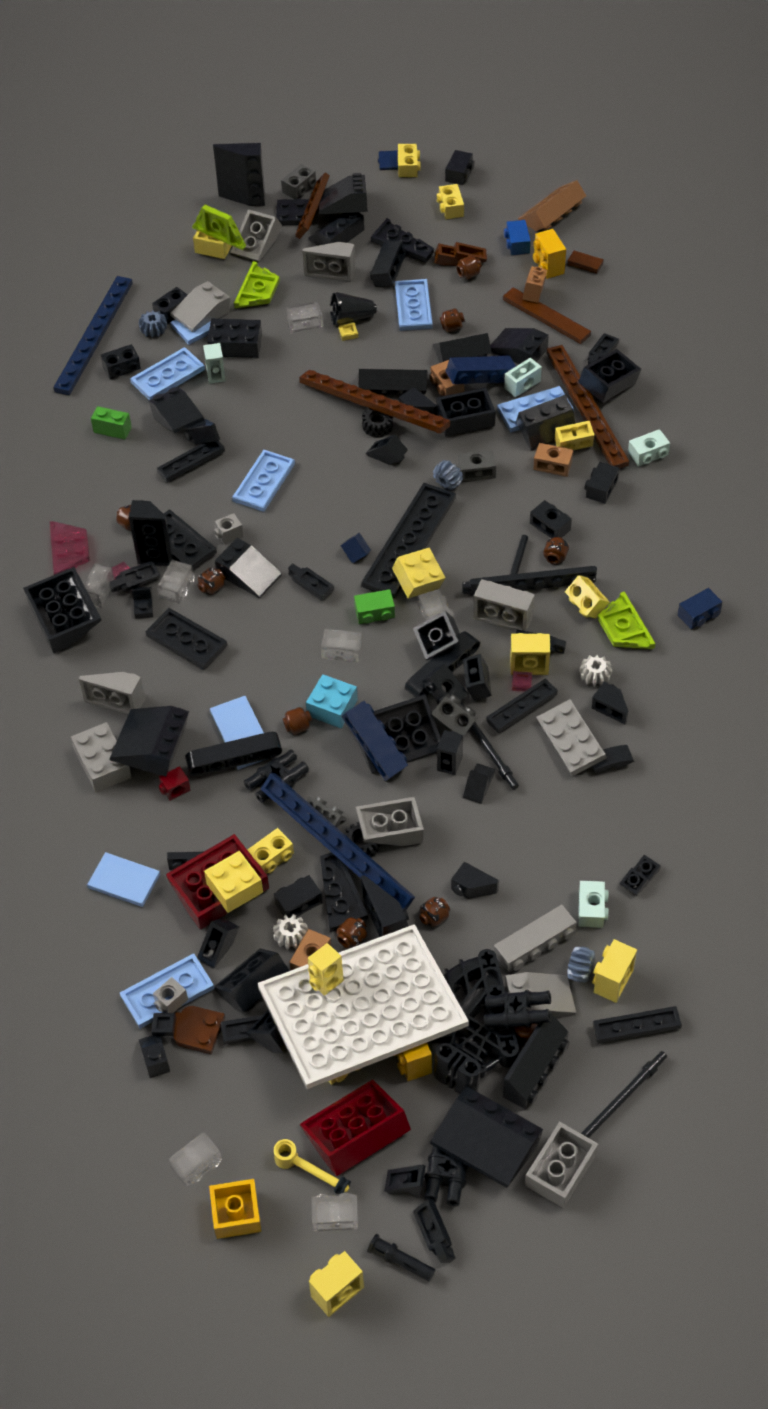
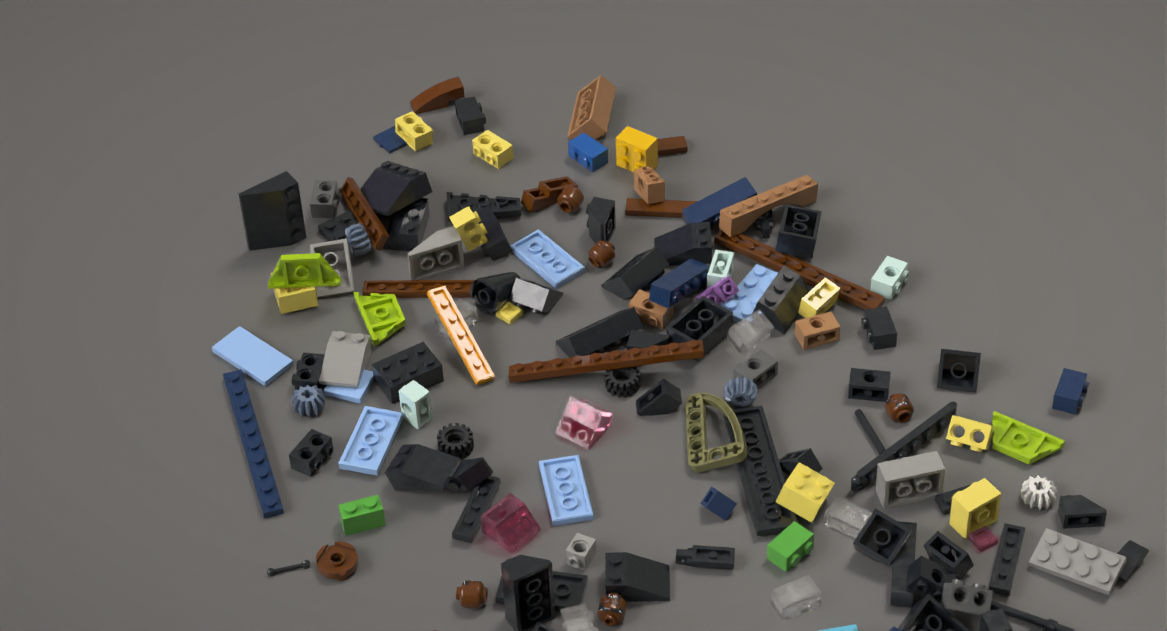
camera: 35 degrees left, 10 degrees down
(50, 438) = (305, 564): none -> black hinge
(71, 453) = (341, 569): none -> reddish brown plate
(148, 273) = (252, 356): none -> light blue tile
(198, 482) = (509, 523): none -> clear pink slope
(221, 398) = (455, 433): none -> black tyre
(289, 222) = (358, 239): none -> sand blue gear
(291, 329) = (460, 335): none -> tile
(300, 280) = (417, 288): none -> reddish brown tile
(319, 437) = (583, 422): none -> clear pink slope
(364, 251) = (469, 229): none -> light yellow brick
(375, 327) = (534, 295): none -> slope
(397, 516) = (706, 455): none -> olive beam
(441, 552) = (804, 457): none -> black slope
(451, 141) = (438, 96): none -> reddish brown slope
(472, 294) = (601, 219): none -> black slope
(501, 433) = (750, 331): none -> clear brick
(504, 392) = (720, 291): none -> medium lavender slope
(572, 325) = (709, 208): none -> dark blue brick
(630, 545) = (958, 370): none -> black slope
(642, 345) = (741, 215): none -> medium nougat arch

